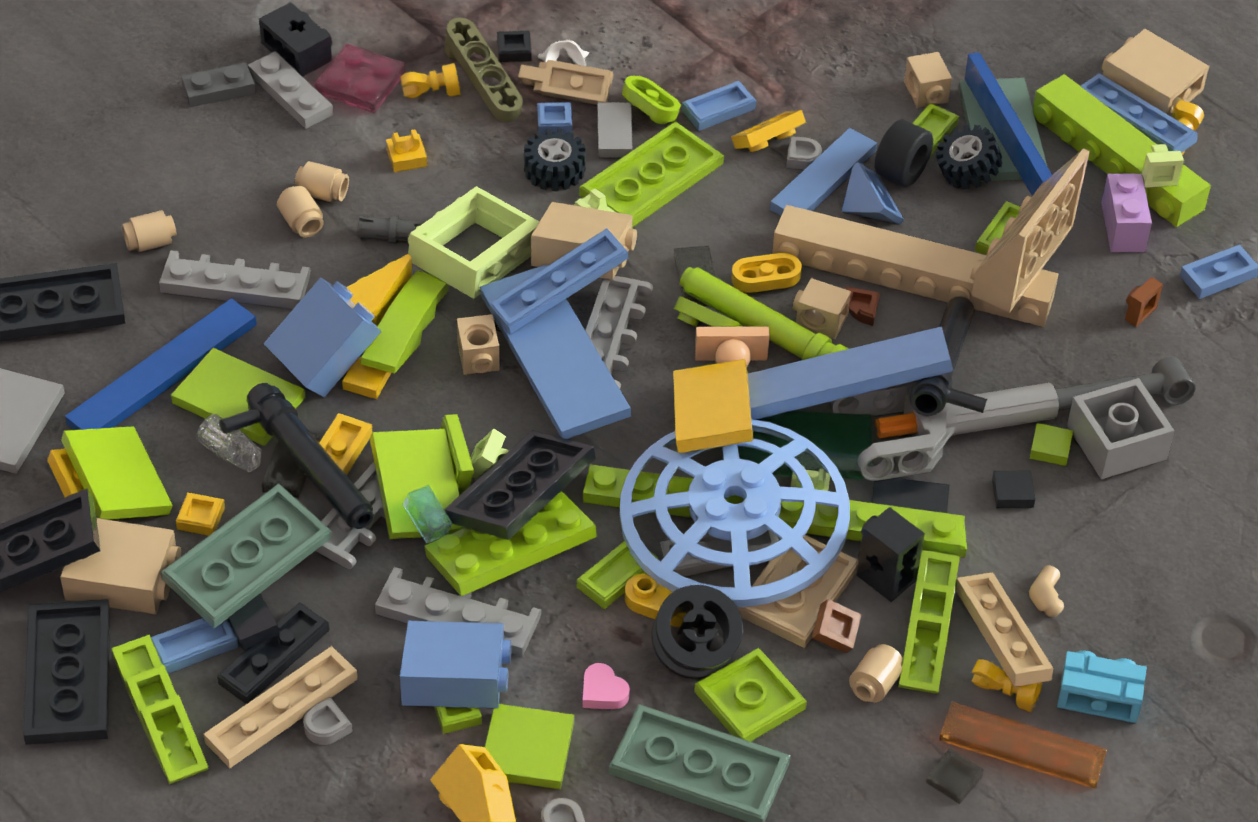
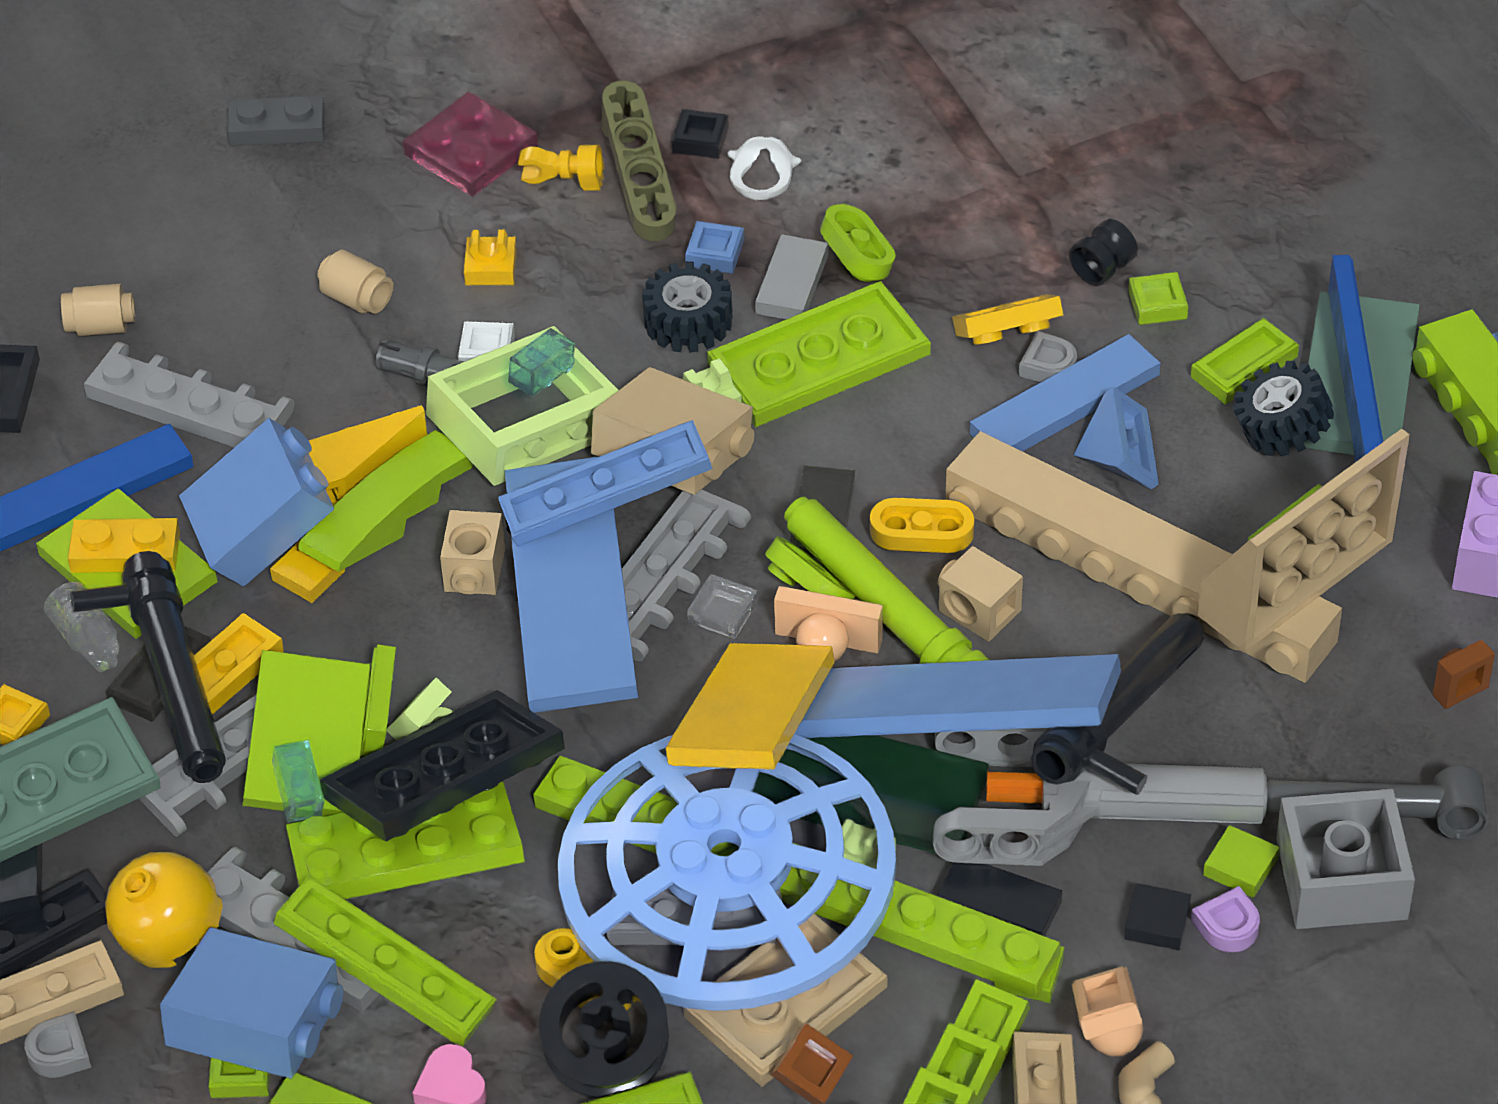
camera: 20 degrees right, 0 degrees up
(232, 383) = (108, 543): none -> yellow plate
(290, 90) = (369, 144): light grey plate -> none
(296, 38) = (401, 74): black brick -> none
(300, 211) = (310, 318): tan brick -> none
(366, 616) = (161, 907): none -> yellow cylinder
(425, 205) = (484, 337): none -> white tile
(482, 210) = (541, 362): none -> clear light blue piece
(532, 618) = (385, 961): none -> lime tile
(568, 81) = (752, 197): tan hinge -> none
(608, 577) = (520, 923): lime tile -> none
(655, 348) = (722, 606): none -> clear tile
(718, 105) = (955, 268): medium blue tile -> none
(813, 78) = (1107, 249): none -> black wheel
(857, 102) = (1158, 298): none -> lime tile
(863, 305) = (1046, 598): copper tile -> none
(889, 553) = (921, 975): black brick -> none
(903, 152) = (1185, 385): black tyre -> none
(927, 79) = (1271, 282): tan brick -> none
(1012, 550) = (1109, 1011): none -> light nougat tile
(1057, 483) = (1228, 921): none -> lavender tile

